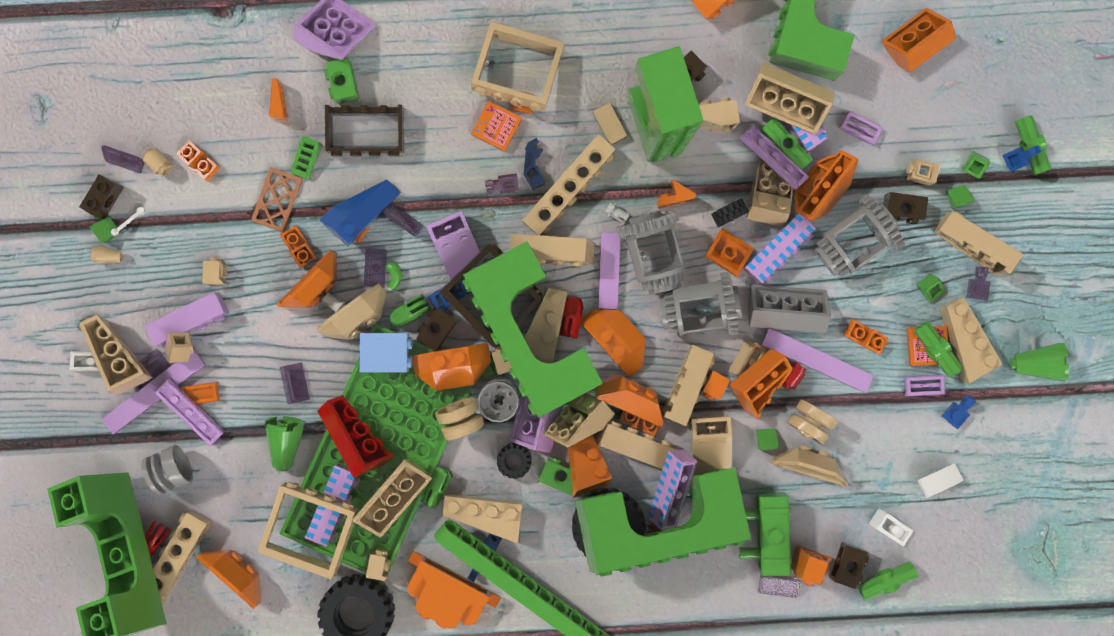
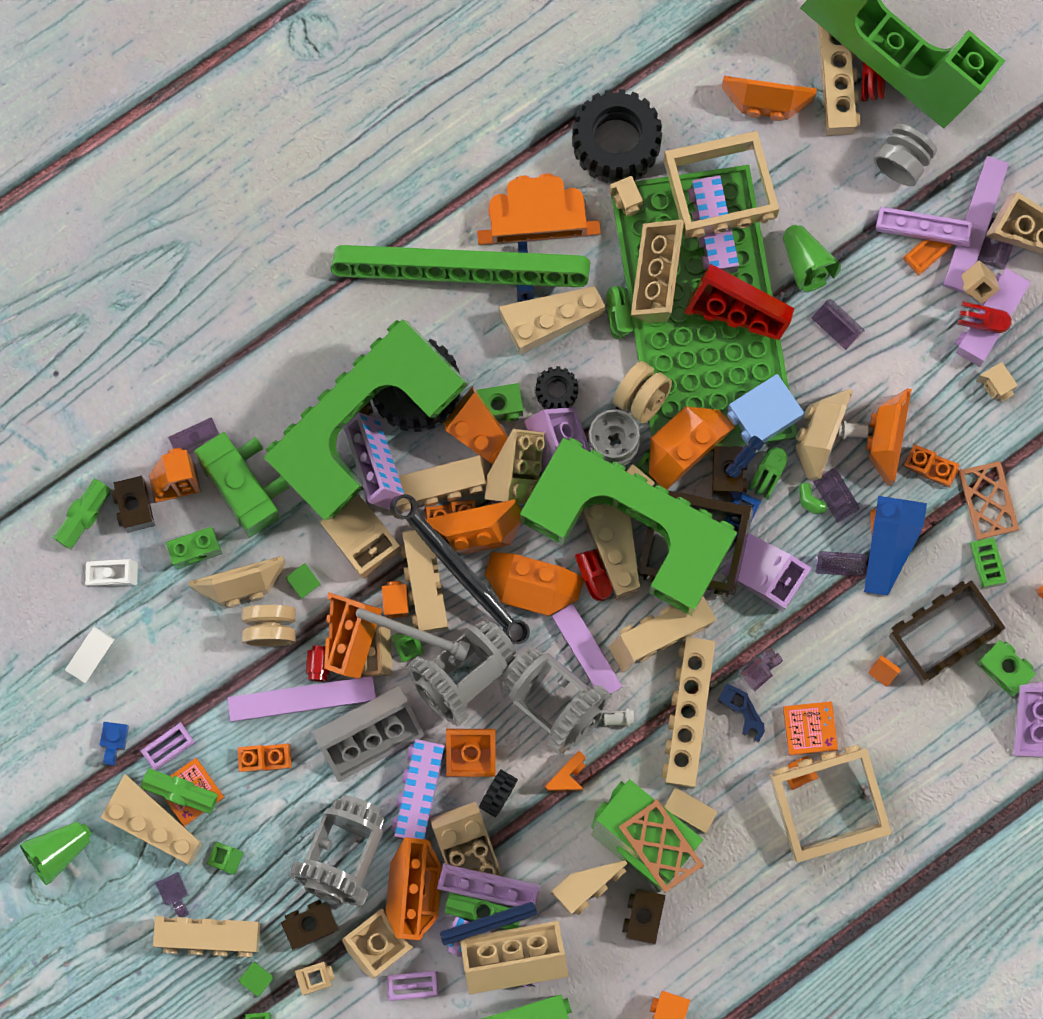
camera: 150 degrees right, 10 degrees down
(189, 314) = (992, 319): none -> red arm
(419, 329) = (744, 456): none -> dark blue axle
(423, 131) = (884, 671): none -> orange slope
(662, 376) = (459, 568): none -> black piece
(686, 83) = (683, 847): none -> nougat window
(697, 323) = (457, 649): none -> light grey piece
(724, 352) = (407, 646): none -> bright green slope
(792, 131) = (488, 923): none -> dark blue axle
(827, 508) = (194, 548): none -> bright green brick
(872, 167) = (375, 945): none -> tan slope

